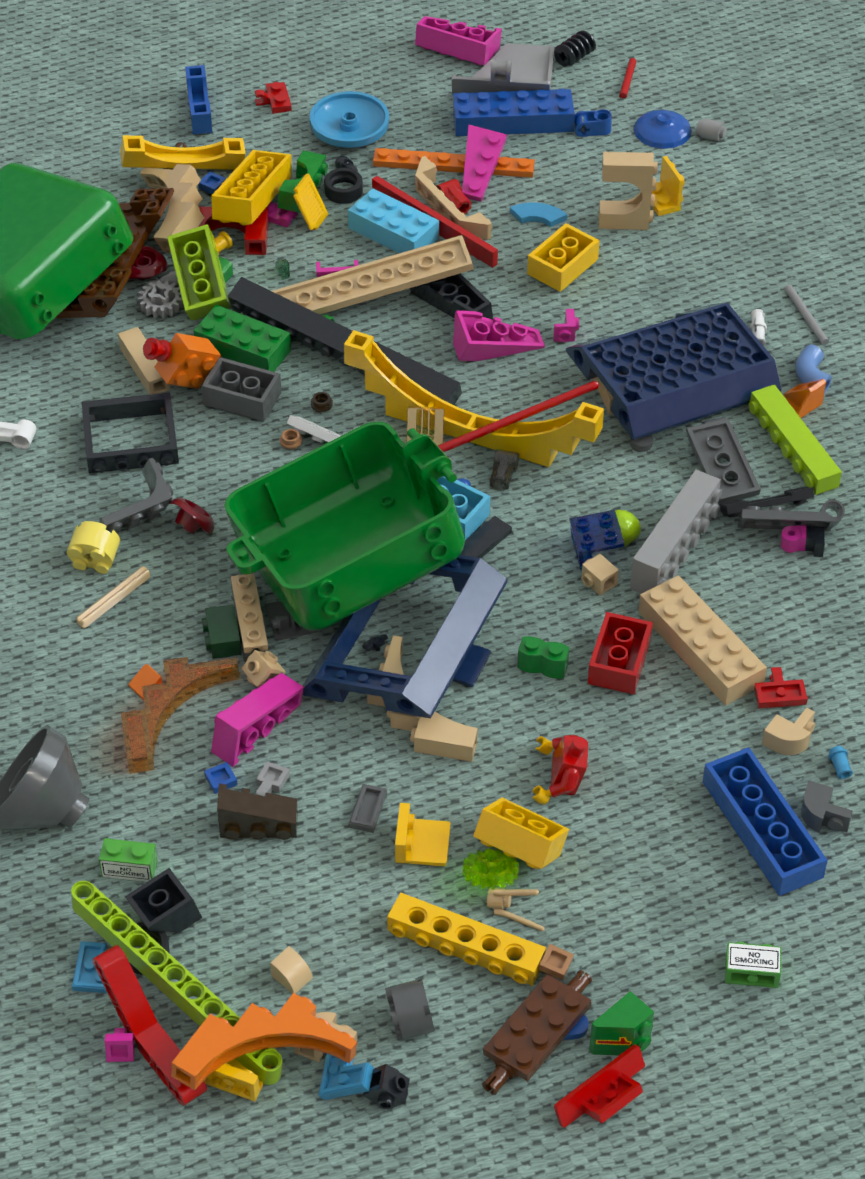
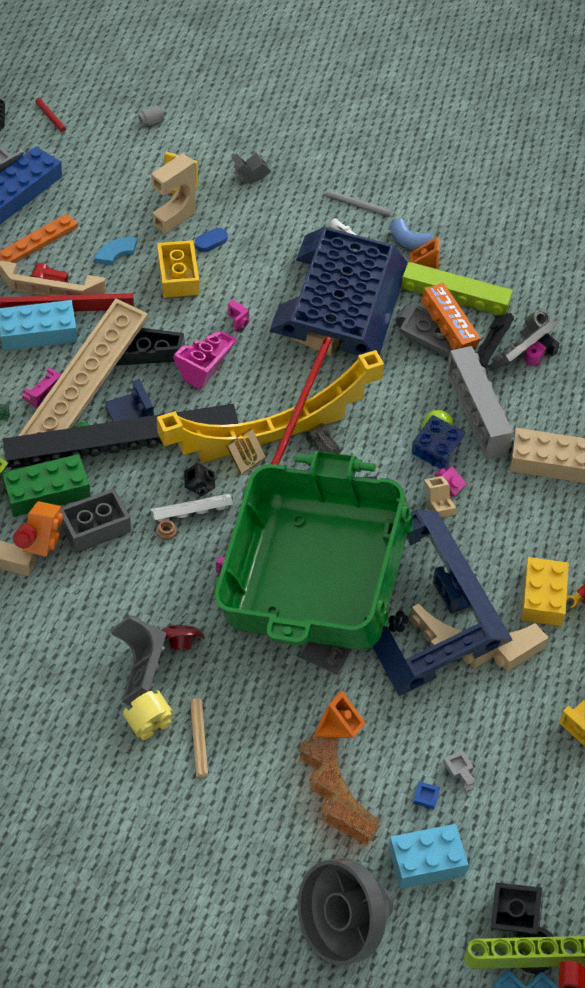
camera: 50 degrees left, 5 degrees up
(128, 860) = (453, 902): bright green brick -> none
(129, 408) = (31, 595): black window -> none
(145, 677) = (299, 776): orange slope -> none
(156, 813) = (428, 856): none -> medium azure brick
(215, 658) = (340, 719): none -> orange slope
(222, 631) = (302, 697): dark green brick -> none
(248, 614) = (307, 672): tan piece -> none
(254, 717) = (401, 736): dark pink wedge -> none
(255, 815) = (487, 799): dark brown wedge -> none
(261, 667) = (364, 699): tan brick -> none
(321, 402) = (152, 483): dark brown plate -> none
(359, 416) = (199, 479): none -> black brick
(368, 808) = (532, 732): dark grey tile -> none
(386, 332) = (132, 405): none -> dark blue bracket
(481, 159) = (36, 234): dark pink wing -> none
(525, 715) = (544, 591): none -> yellow brick
(537, 578) = (438, 496): none -> tan brick
(543, 657) = (505, 545): green brick -> none
(569, 576) = (454, 480): none -> dark pink bracket
(595, 123) = (73, 160): blue piece -> none
(599, 574) = (465, 464): tan brick -> none
(620, 653) = (543, 504): red brick -> none
(630, 257) = (211, 240): none -> blue tile
(662, 129) = (116, 136): blue hat -> none
(739, 225) = (251, 169): none -> dark grey brick
(741, 451) = (449, 317): none -> orange brick

